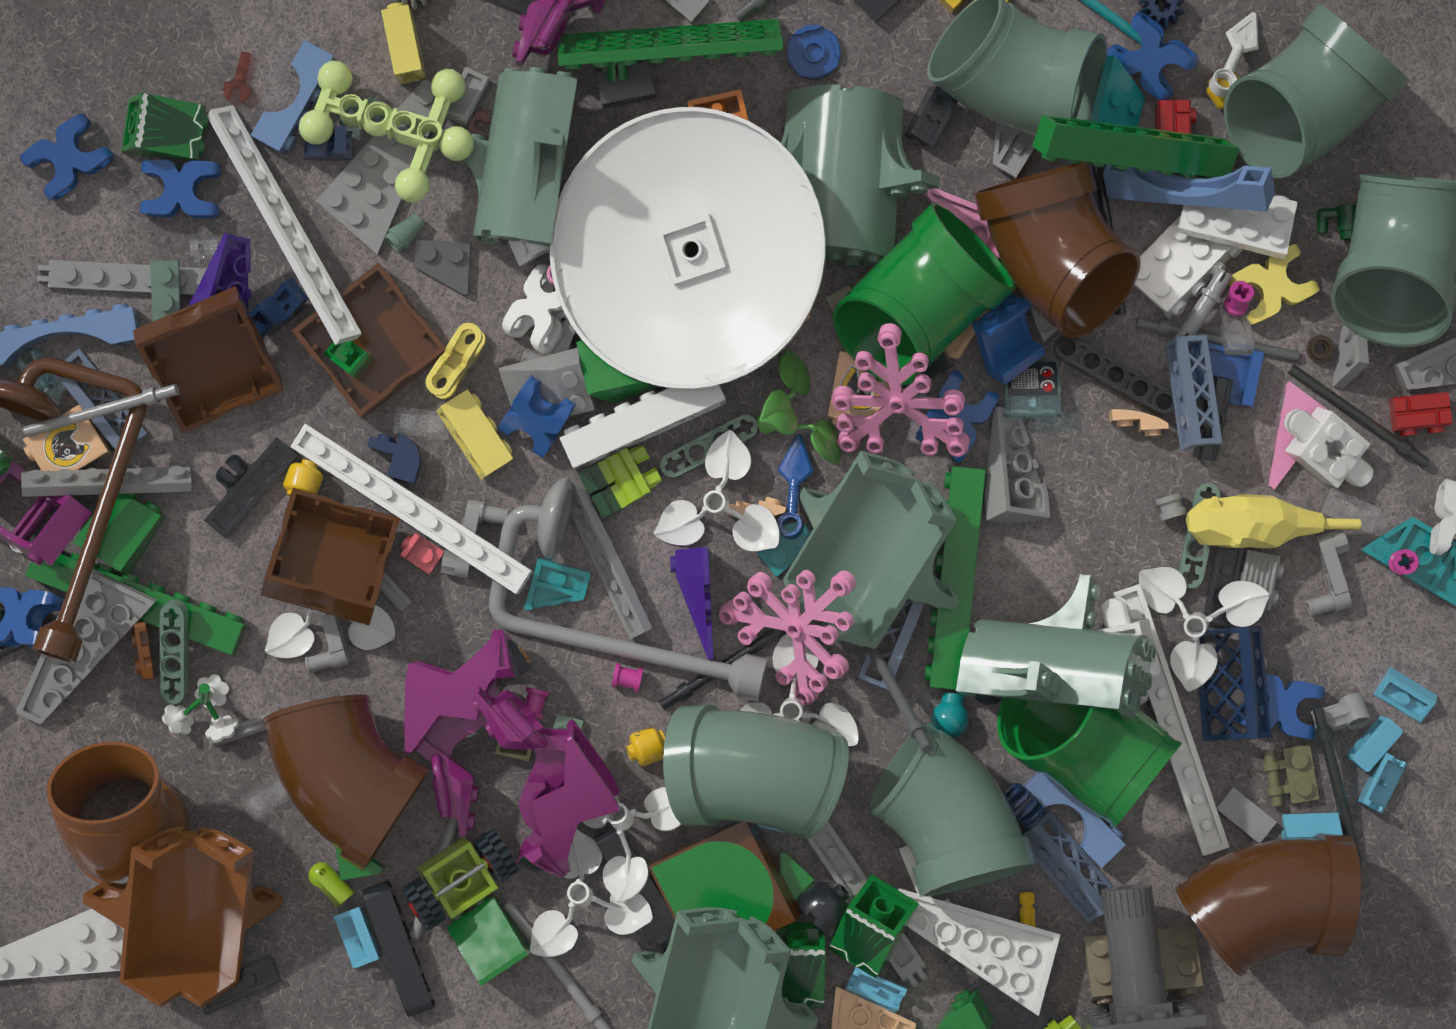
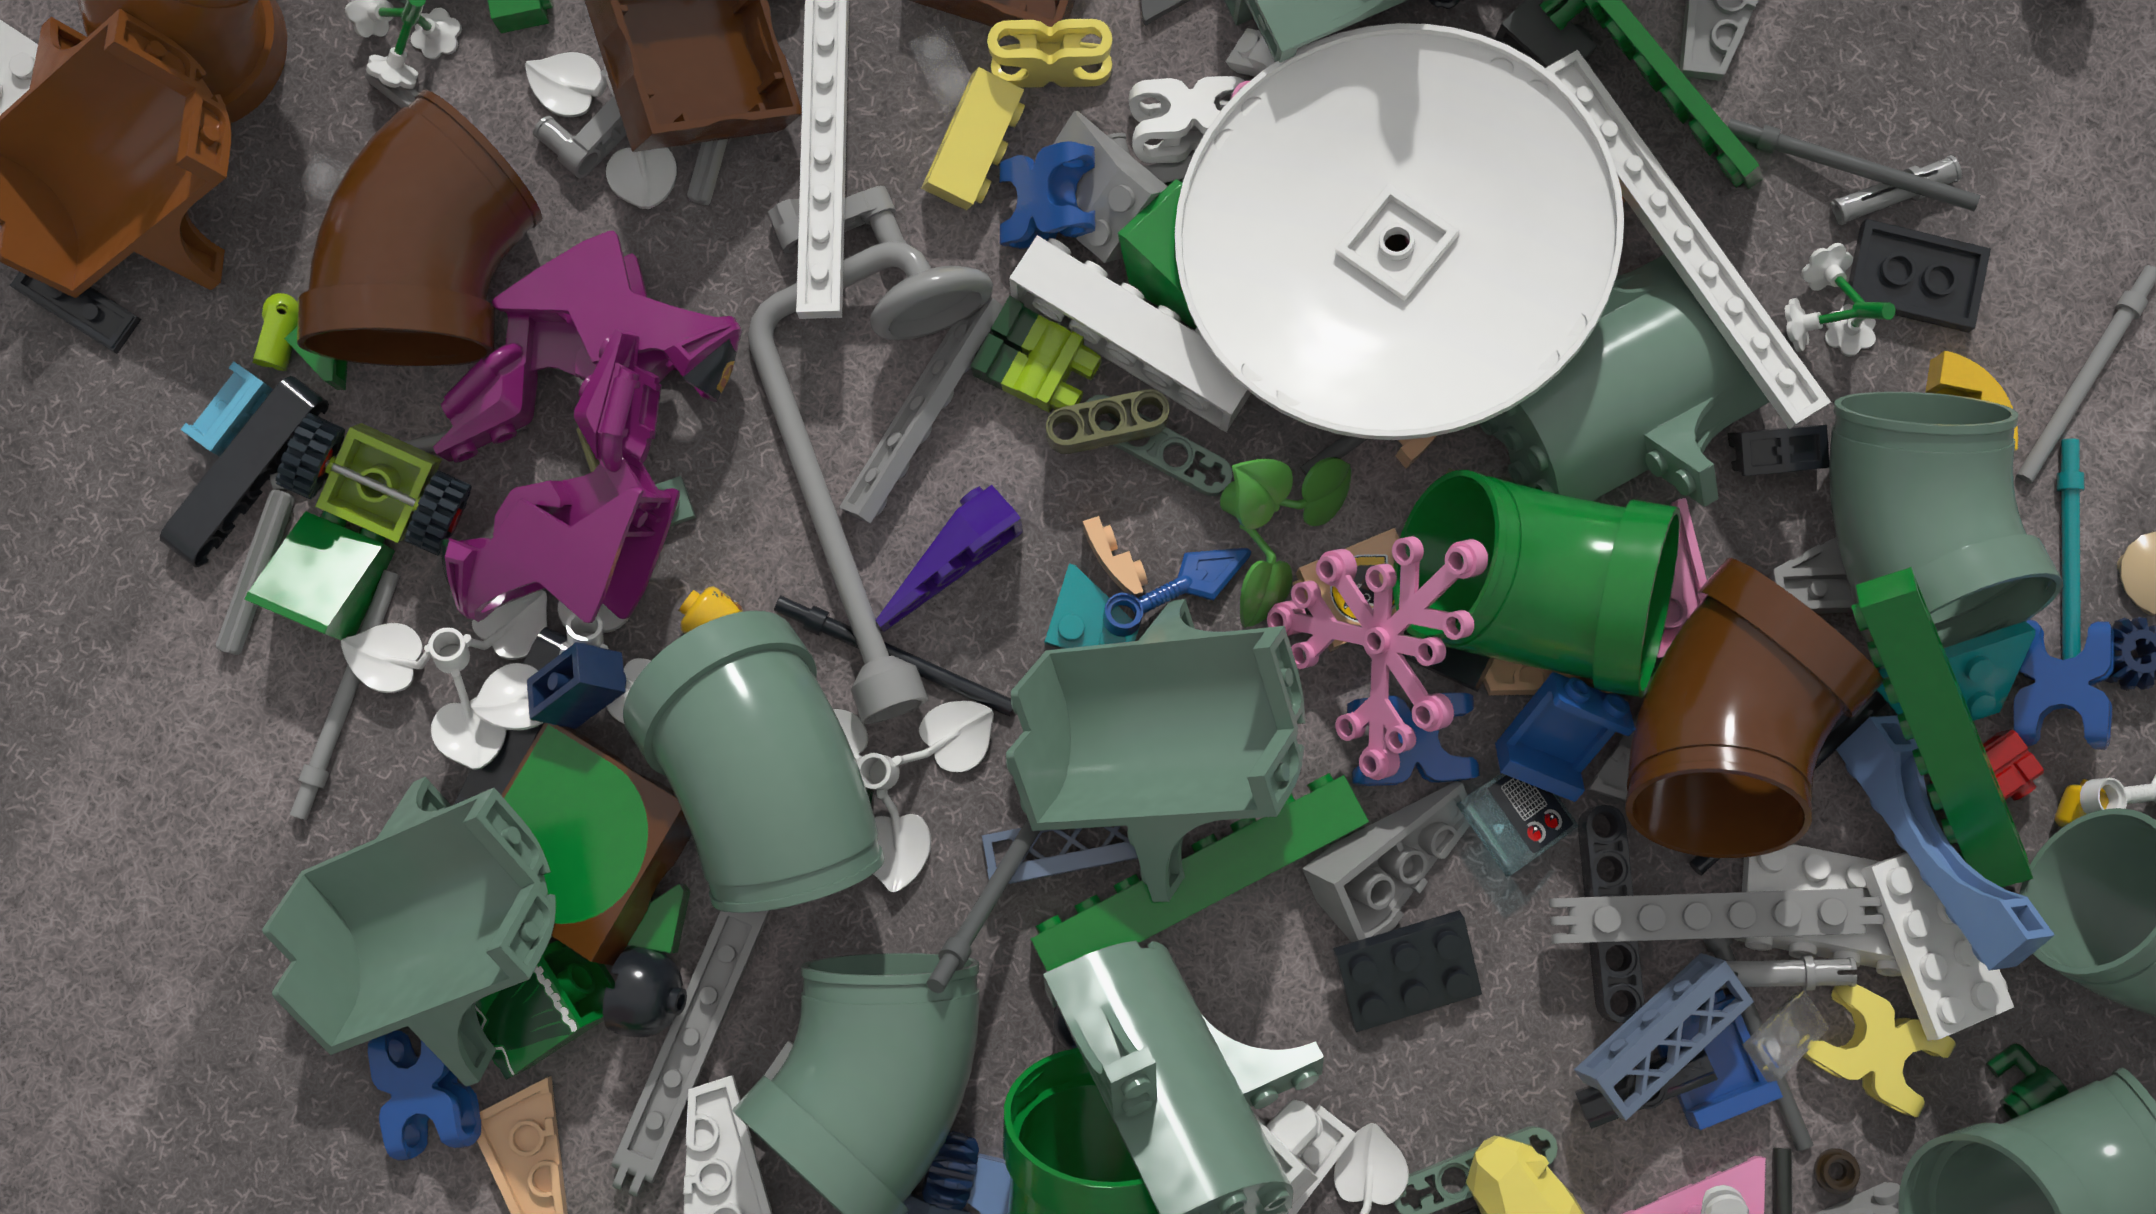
camera: 50 degrees right, 5 degrees down
(406, 456) = (886, 76): dark blue brick -> none
(421, 552) = (778, 171): coral bracket -> none
(458, 977) = (263, 547): none -> light grey axle
(535, 700) = (677, 438): dark pink bush -> none
(556, 584) = (848, 366): teal wing -> none
(627, 677) = (785, 535): dark pink bush -> none
(643, 839) = (576, 685): none -> dark blue brick
(681, 451) = (1123, 406): none -> olive beam
(757, 526) = (1081, 569): white plant -> none
(791, 97) = (1696, 253): none -> white plate
(796, 626) = (993, 705): bright pink plant -> none
(813, 60) = (1738, 241): blue tile -> none
(873, 926) = (656, 1073): green slope -> none
(876, 990) = (580, 1134): medium azure hinge -> none
(890, 32) = (1853, 324): none -> white plant
(951, 715) = (1010, 993): teal piece -> none
(1074, 501) = (1407, 971): none -> black plate
(1145, 422) = (1577, 999): light nougat slope -> none
(1150, 324) = (1714, 915): none -> light grey hinge
(1171, 506) = (1488, 1107): light grey wheel -> none
(1239, 296) = (1836, 1012): dark pink bush -> none

